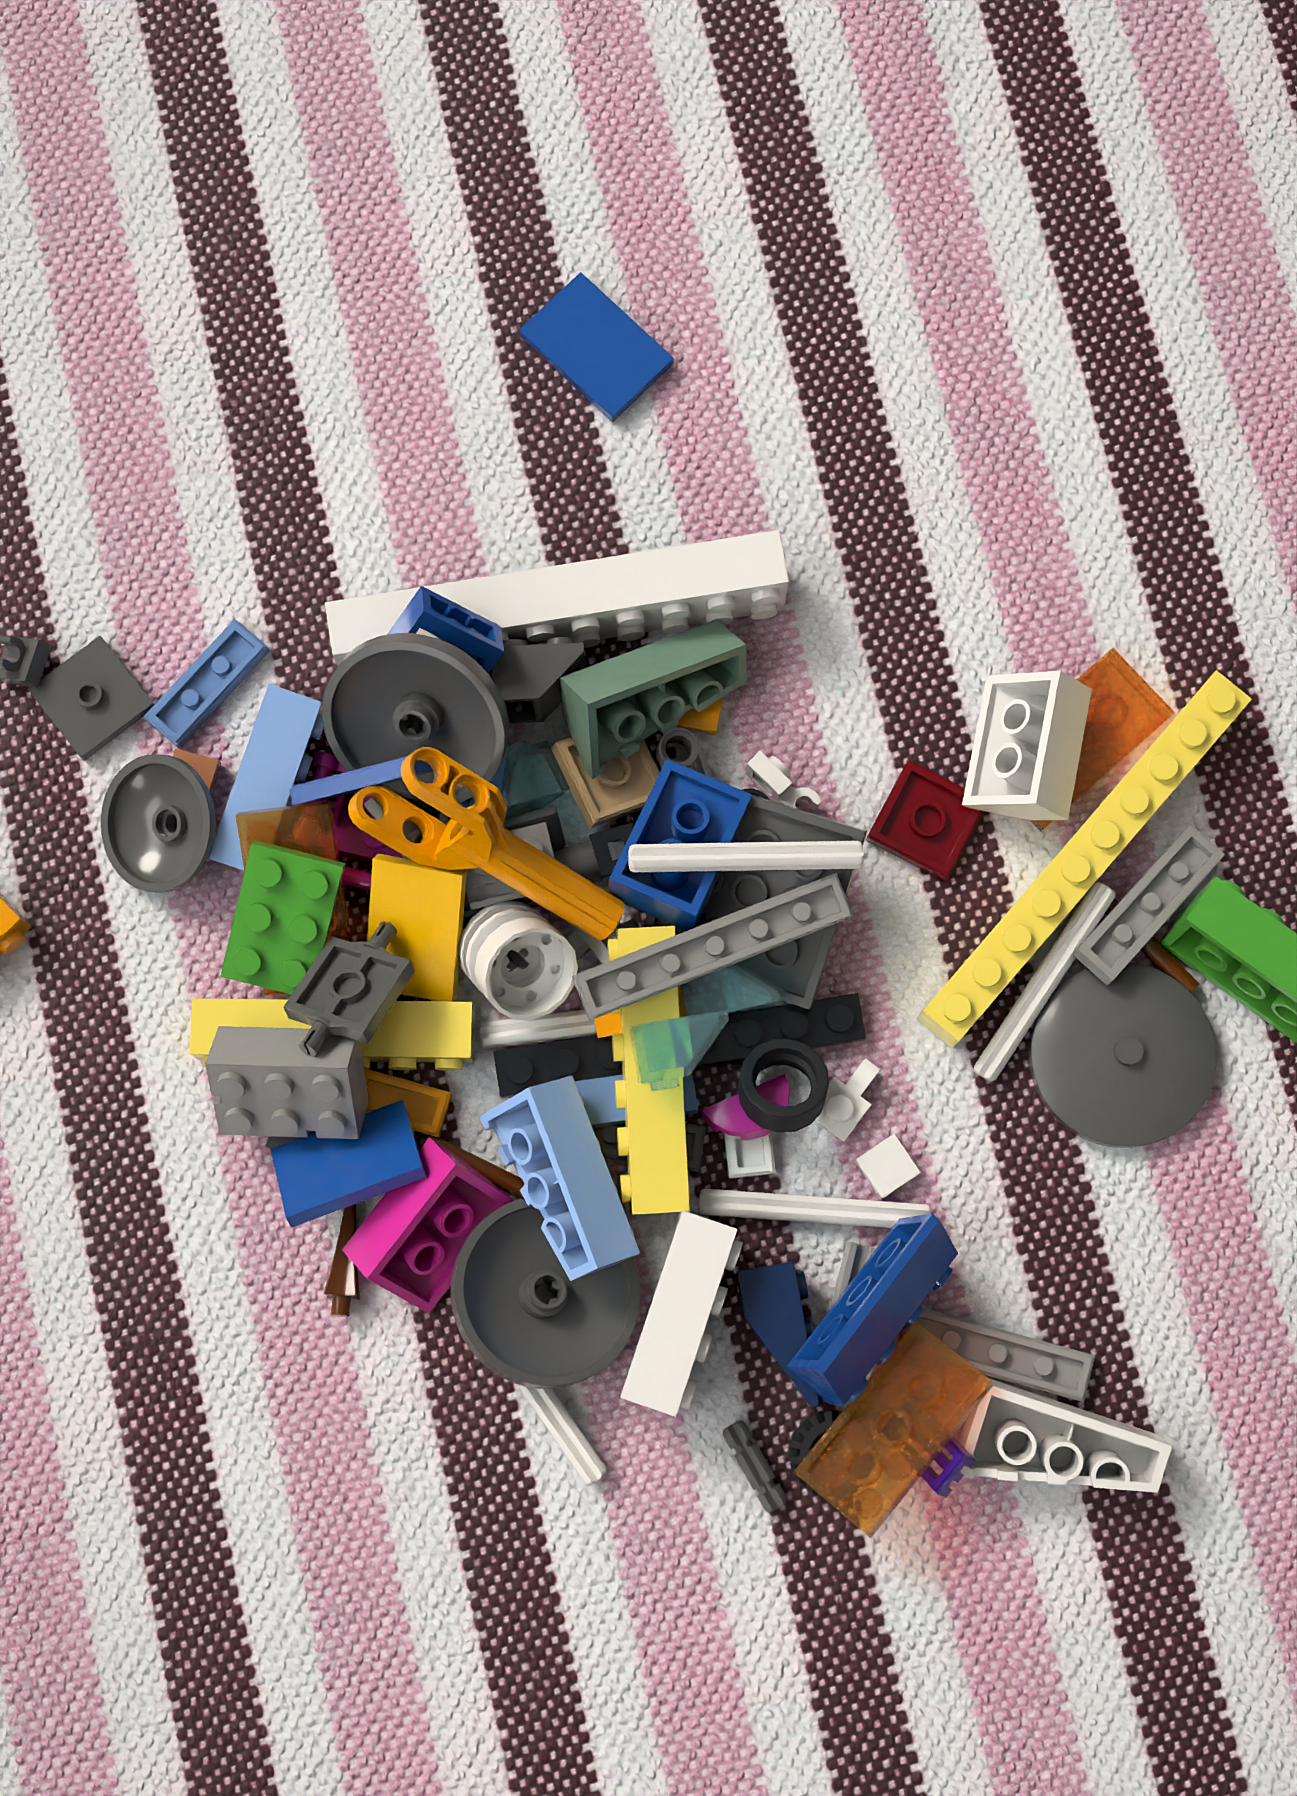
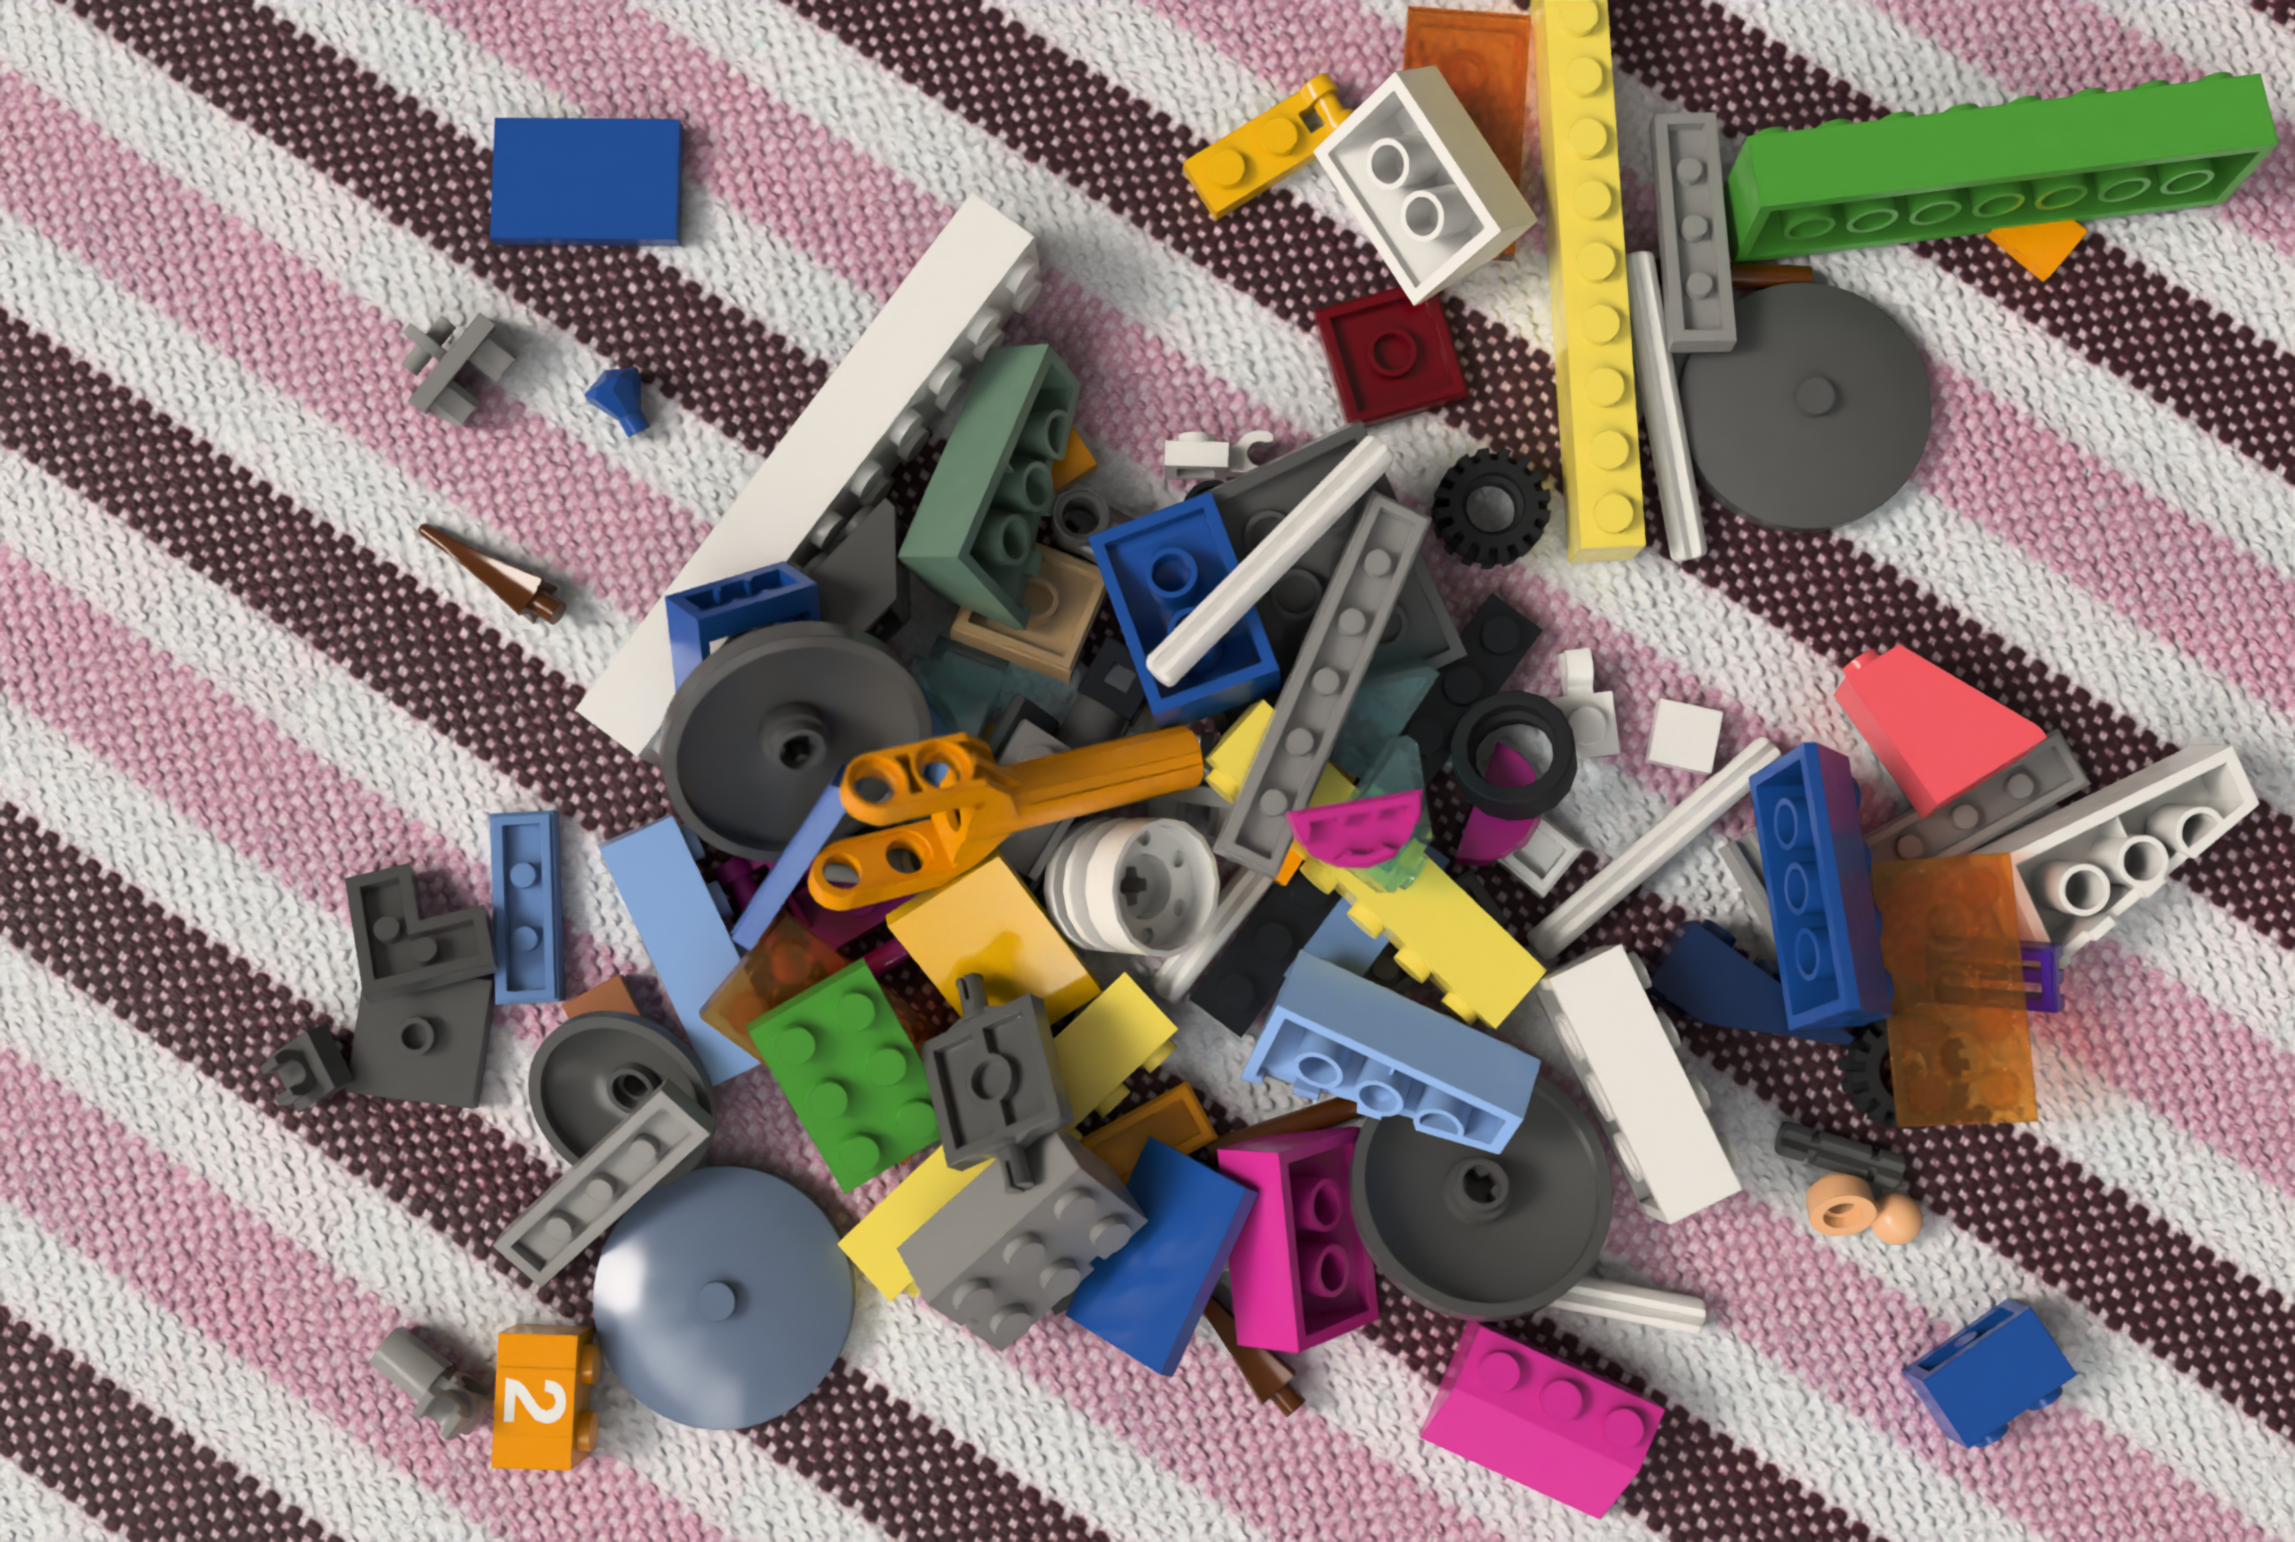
camera: 40 degrees left, 5 degrees up
(108, 855) = (605, 1182): none -> light grey plate
(110, 974) = (724, 1297): none -> sand blue dish
(125, 643) = (402, 950): none -> dark grey plate
(359, 518) = (519, 589): none -> reddish brown piece
(458, 377) = (475, 345): none -> light grey hips
(459, 1446) = (1541, 1419): none -> dark pink slope
(505, 470) = (619, 395): none -> blue rock
(653, 1033) = (1359, 830): none -> dark pink tile
(719, 1660) = (1990, 1374): none -> blue brick
(729, 1494) = (1845, 1205): none -> light nougat plate
(916, 926) = (1508, 475): none -> black tyre
(964, 651) = (1265, 148): none -> yellow plate
(1023, 1287) = (1931, 726): none -> coral slope

